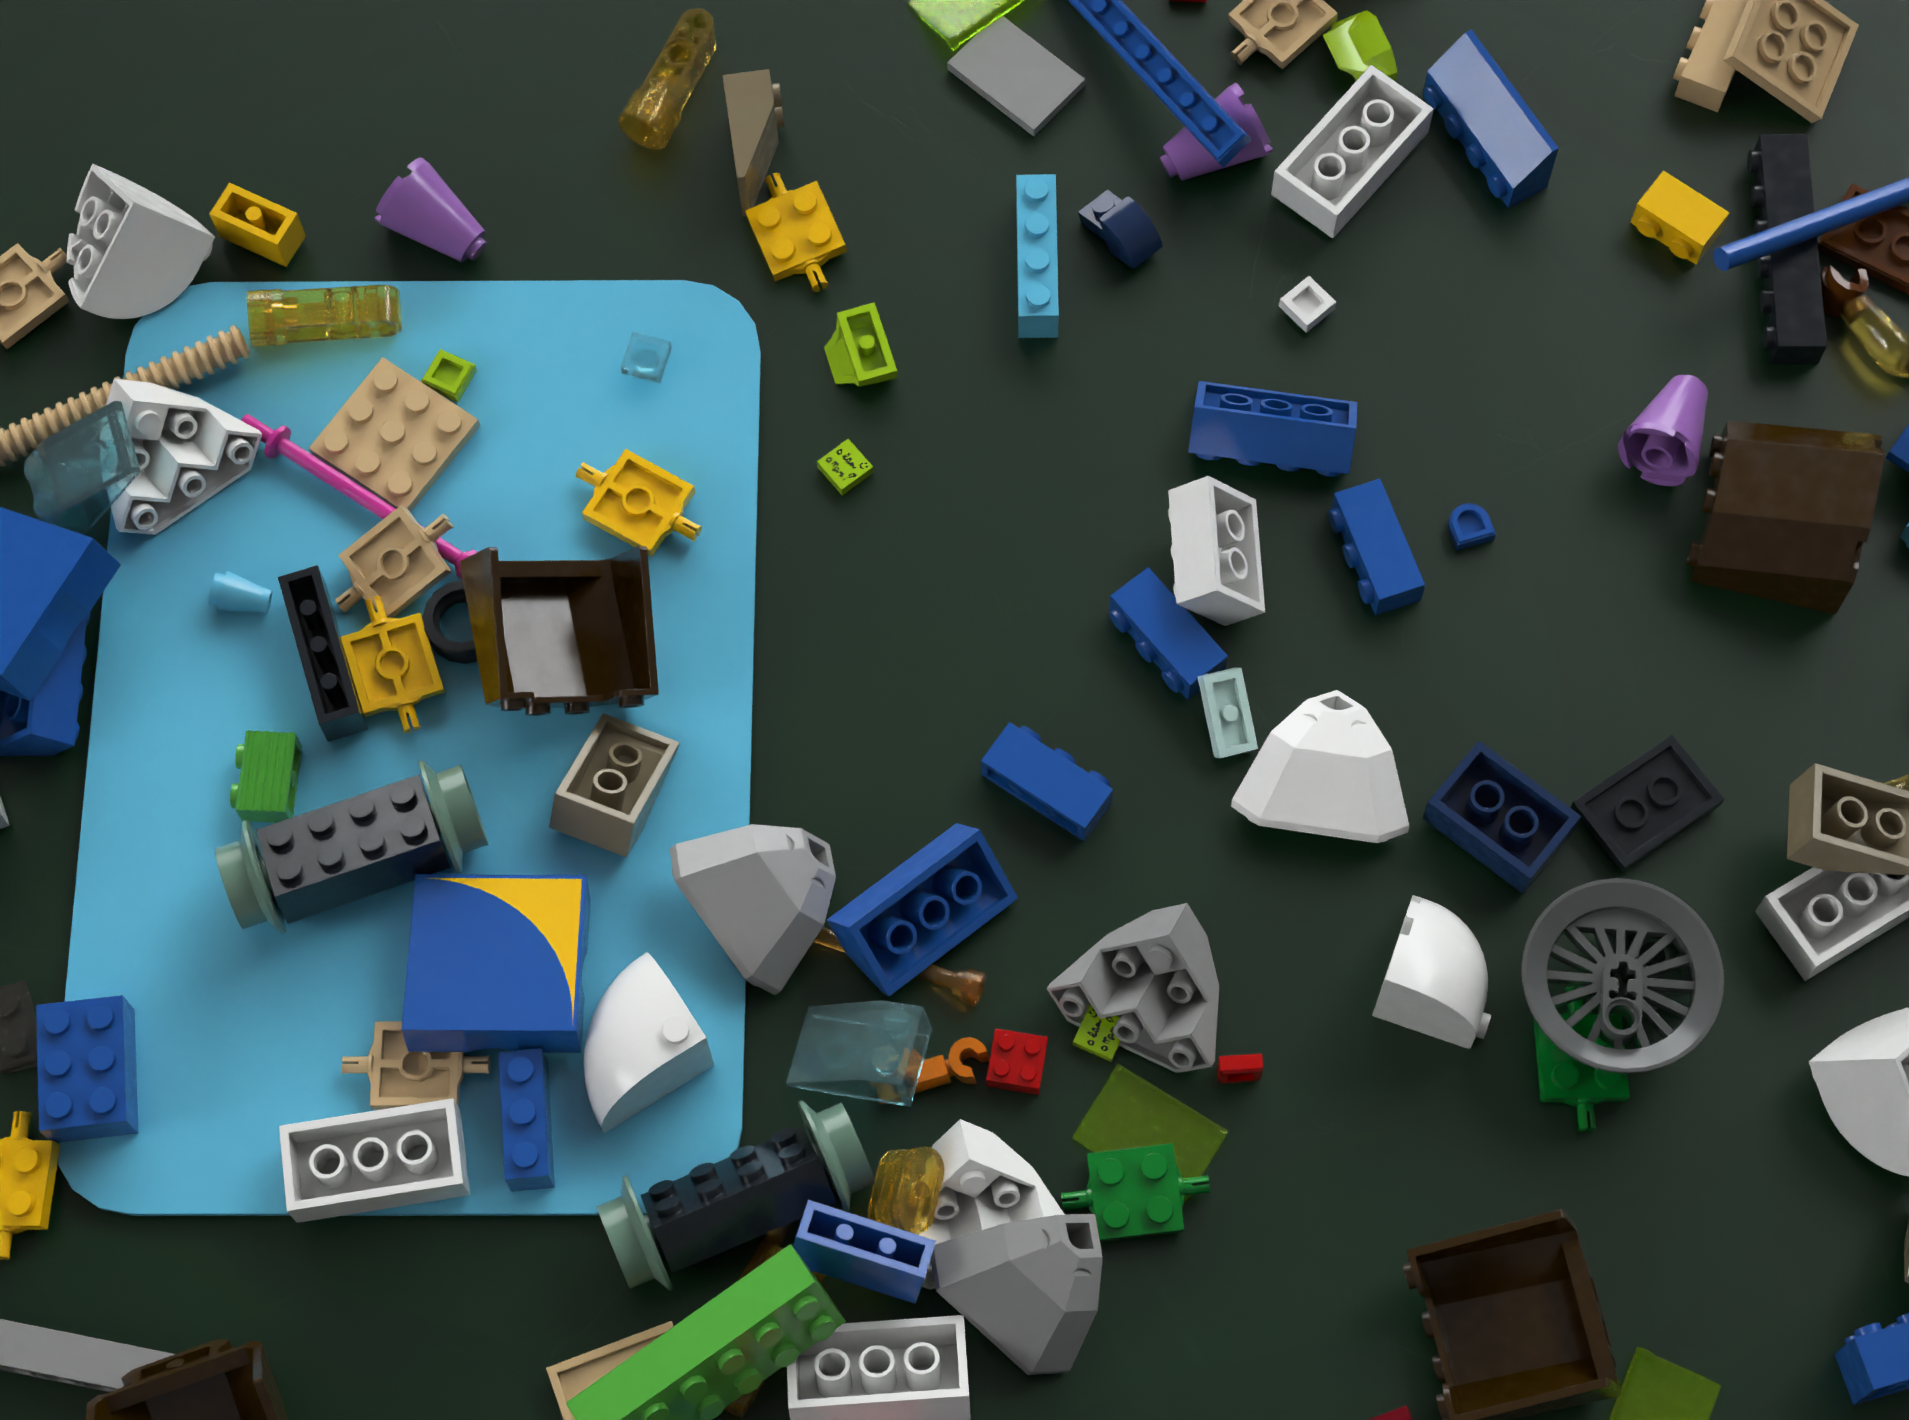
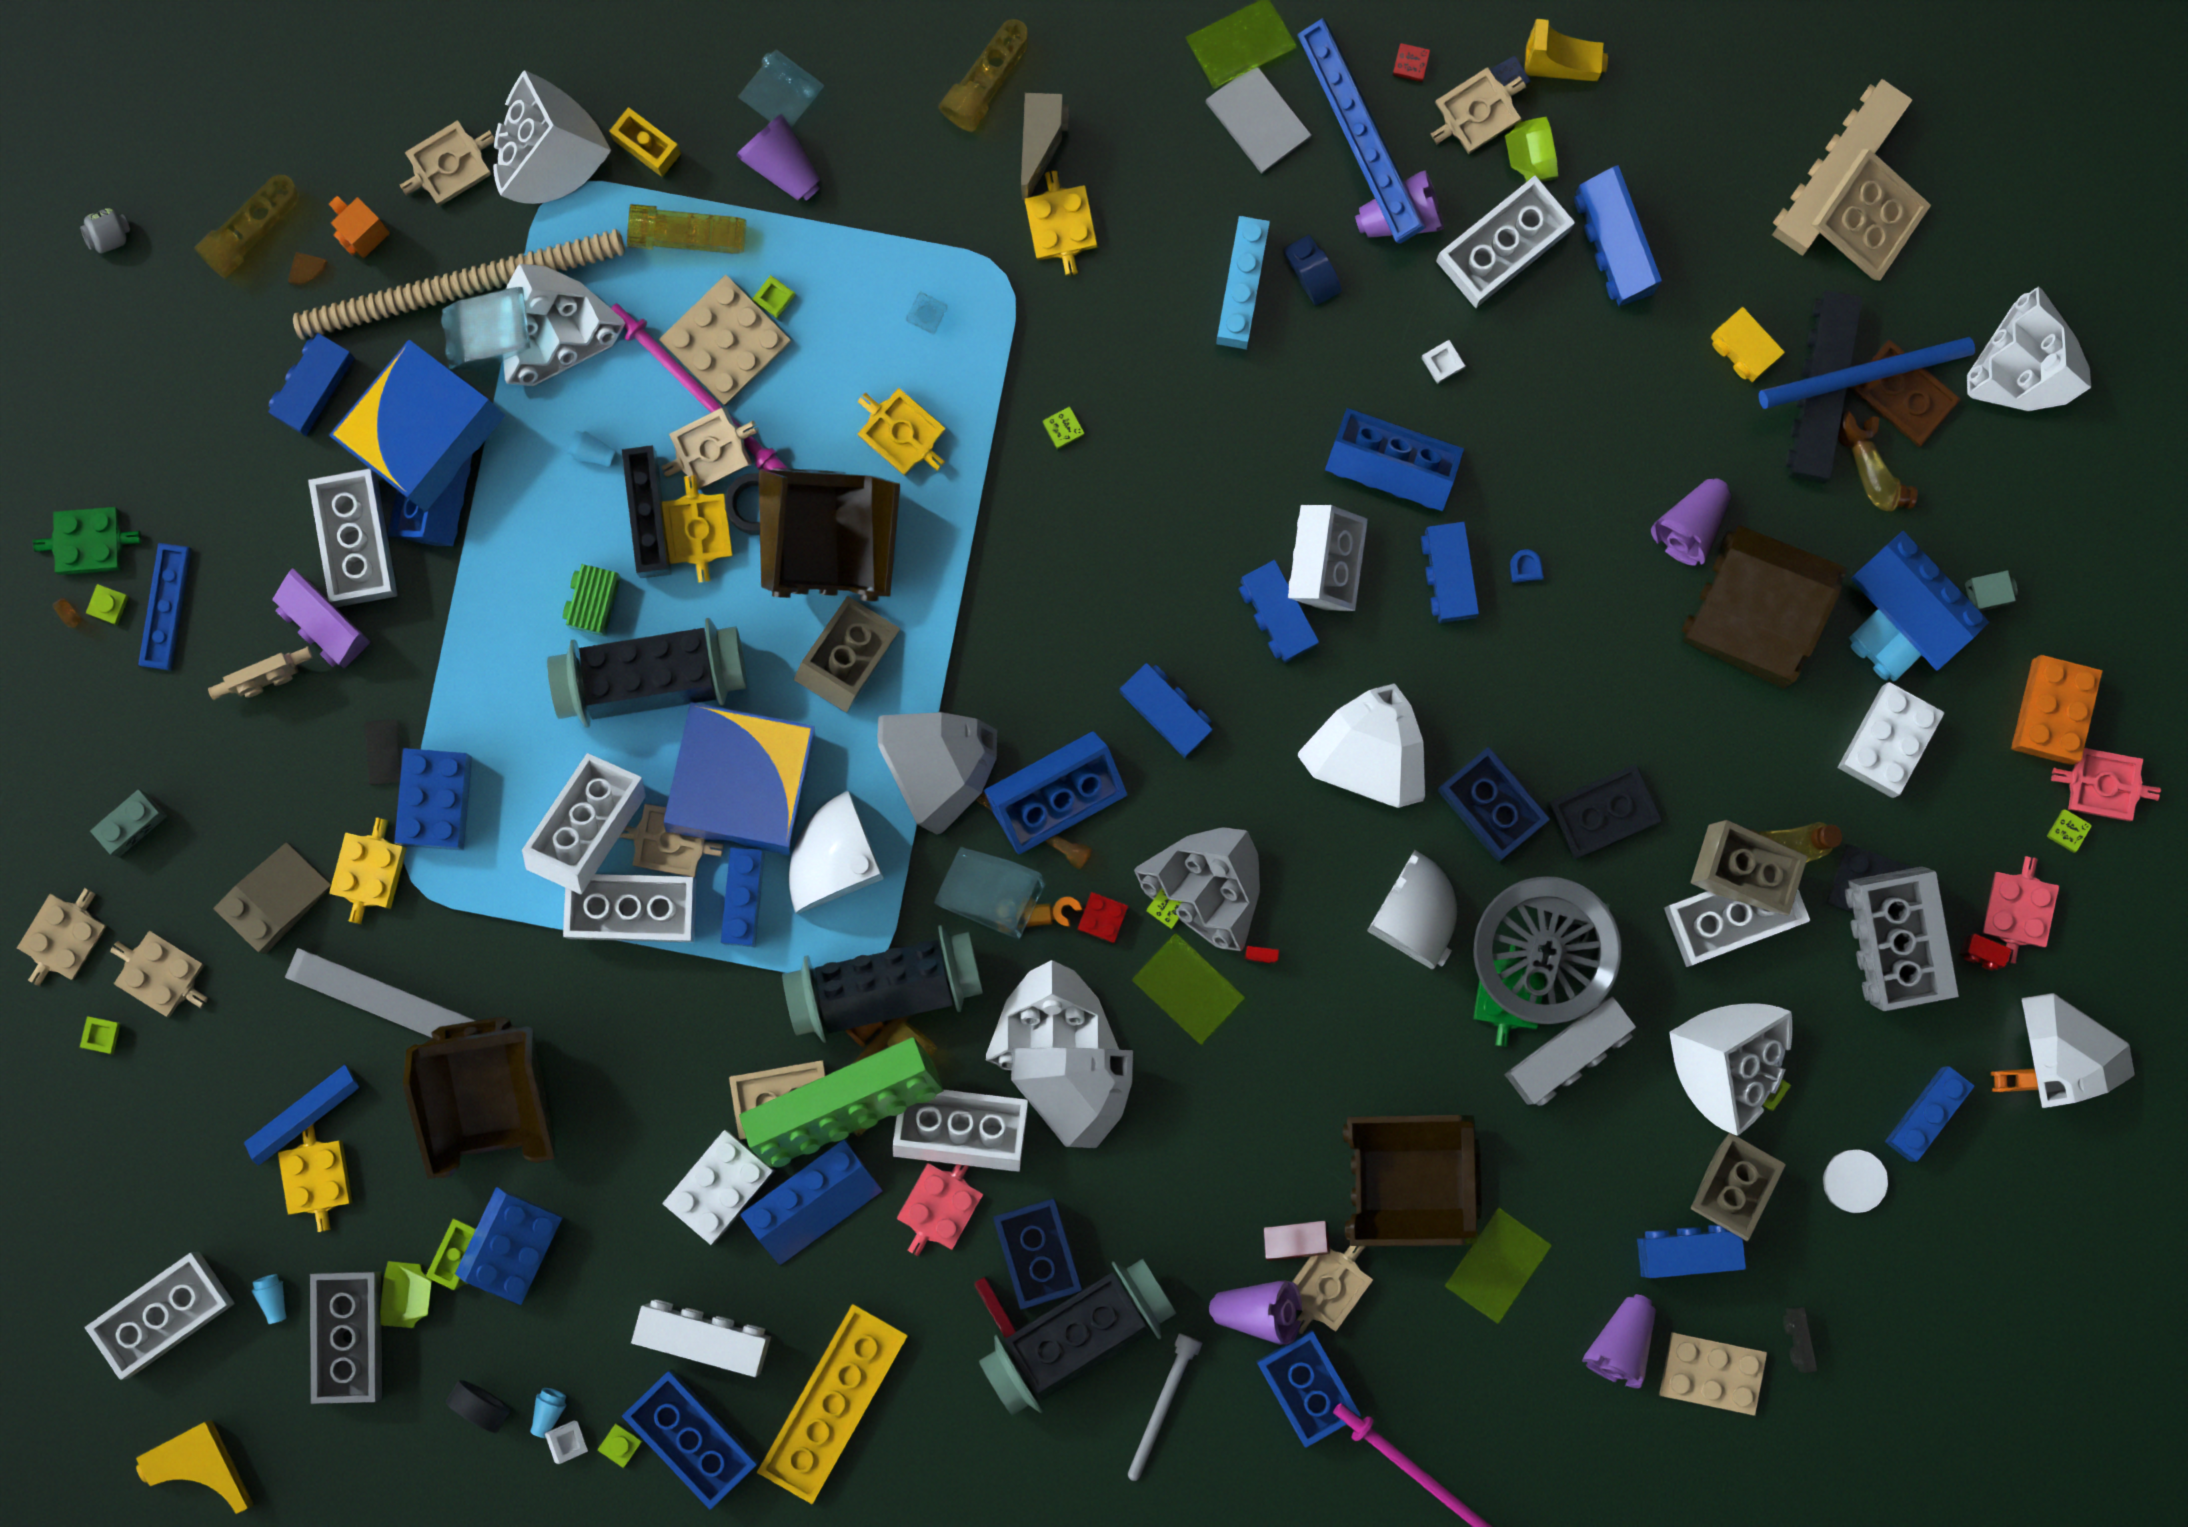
camera: 10 degrees right, 15 degrees up
(293, 1055) = (583, 823): none -> white brick
(418, 134) = (780, 89): none -> clear light blue hinge
(721, 1268) = (863, 1033): none -> dark orange bush
(860, 348) = (1092, 334): lime slope -> none
(863, 1251) = (964, 1045): blue brick -> none
(907, 1189) = (1003, 1003): clear yellow brick -> none
(1135, 1192) = (1168, 1030): green plate -> none
(1227, 712) = (1310, 684): light aqua plate -> none
(1676, 1120) = (1570, 1051): none -> light grey brick

